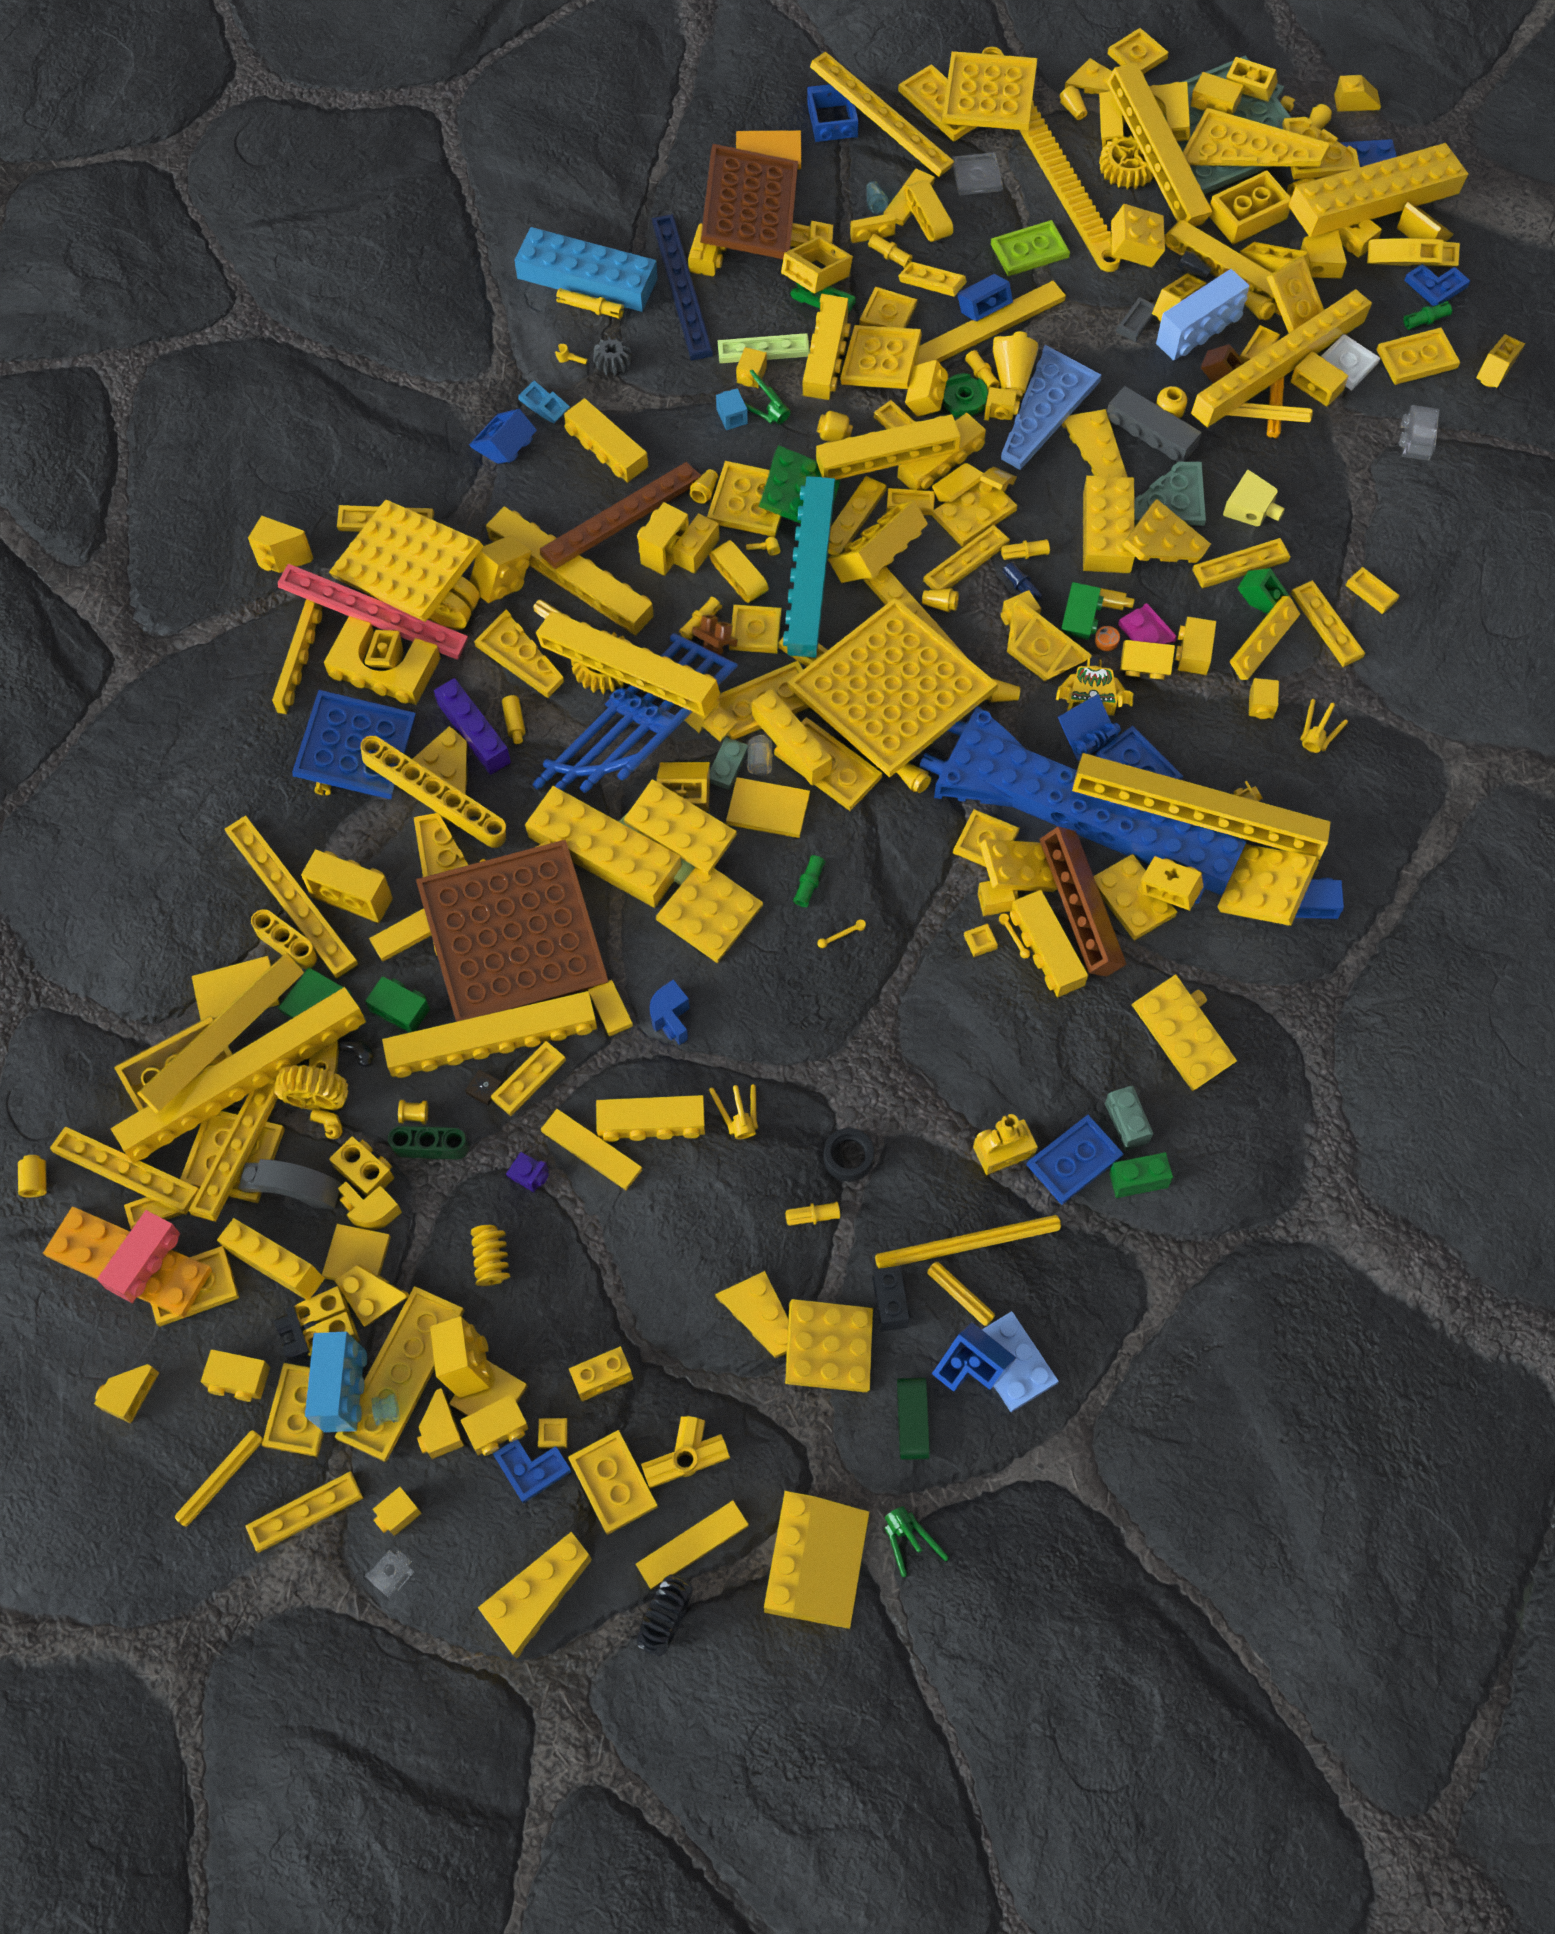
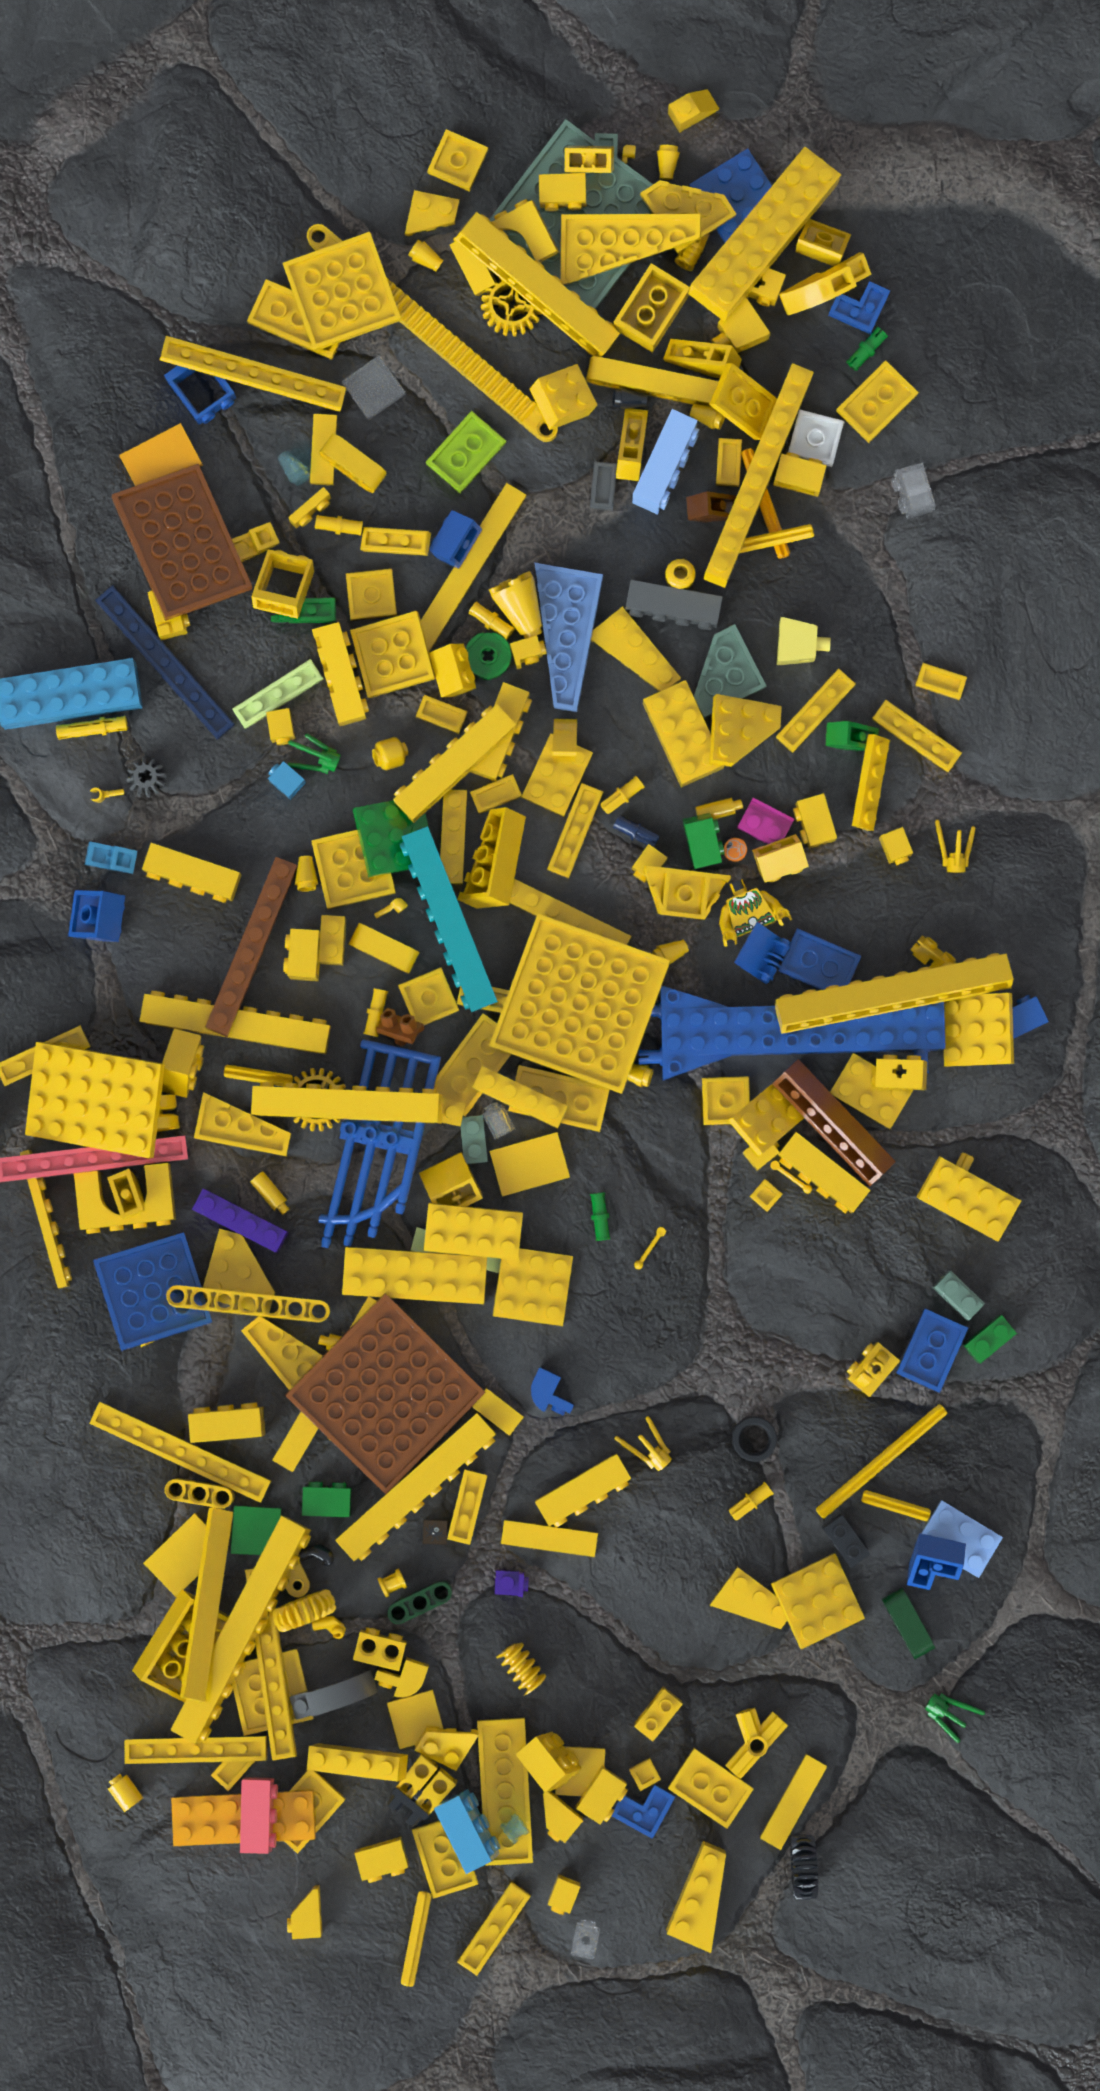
camera: 25 degrees left, 20 degrees up
(816, 1560) = (890, 1766): yellow slope -> none
(941, 599) = (575, 885): yellow cone -> none
(957, 483) = (530, 757): yellow slope -> none
(1500, 361) = (954, 369): yellow slope -> none

